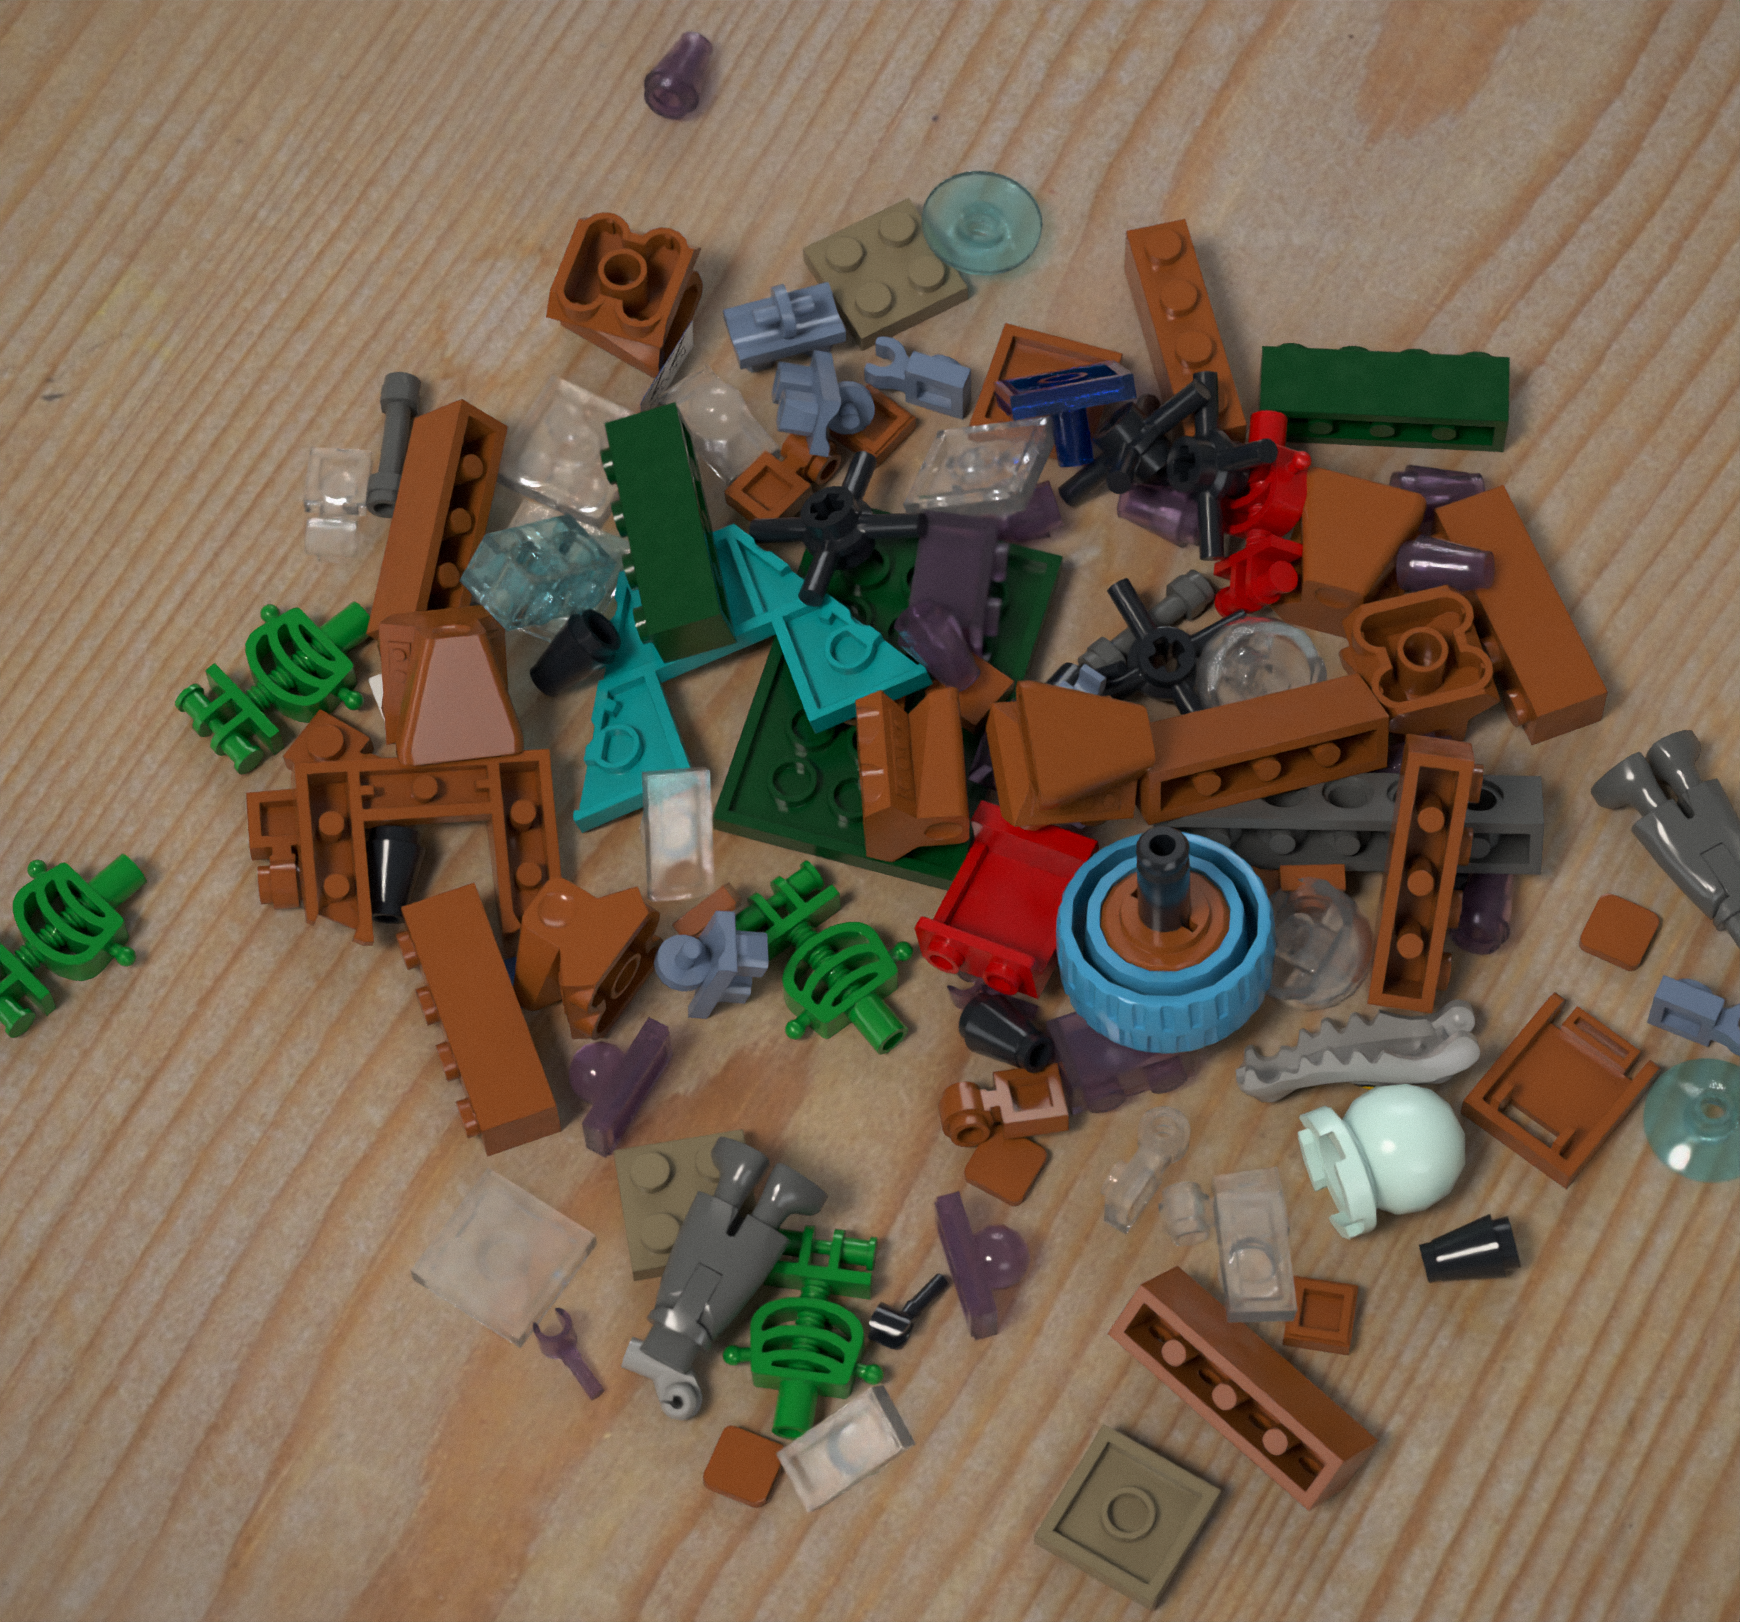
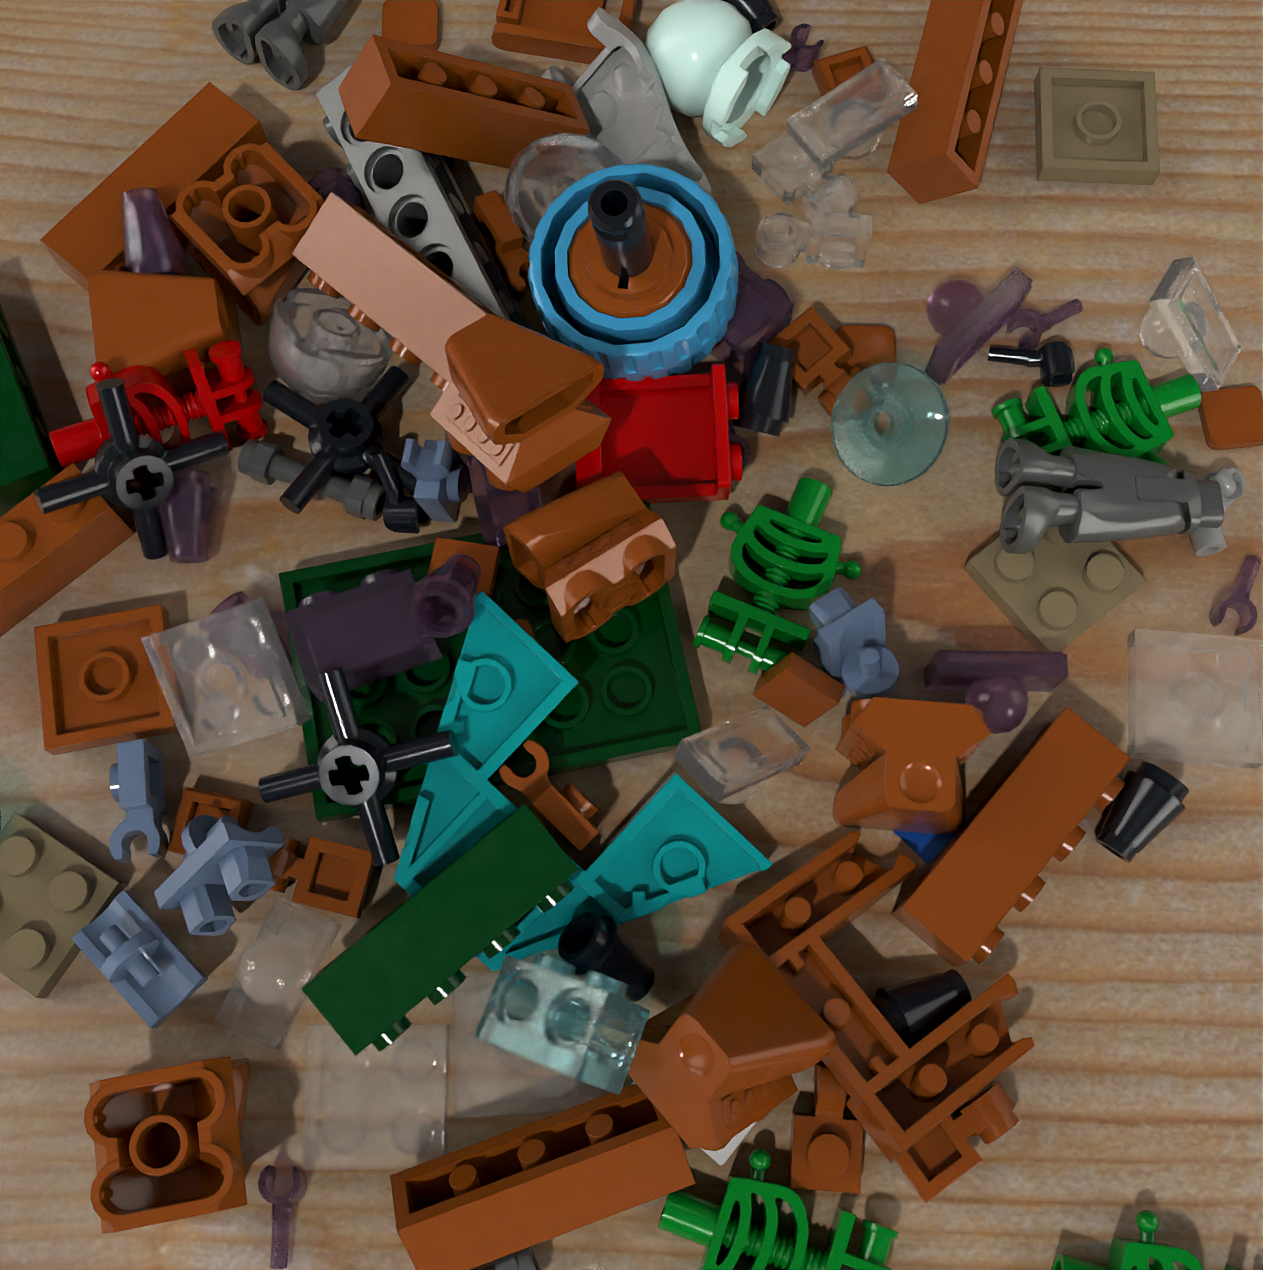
camera: 120 degrees left, 10 degrees up
(437, 1143) = (1141, 810): none -> black cone
(535, 357) = (281, 1211): none -> hand
(669, 369) = (251, 1052): white sticker -> none
(725, 677) = (565, 808): none -> dark orange plate
(896, 1111) = (914, 431): none -> clear light blue dish
(943, 1337) = (1040, 323): none -> hand
(1065, 397) = (115, 625): clear blue tile -> none
(1133, 443) = (134, 550): black bar -> none
(1378, 1269) = (801, 55): none -> hand
(1437, 485) = (64, 311): cone -> none

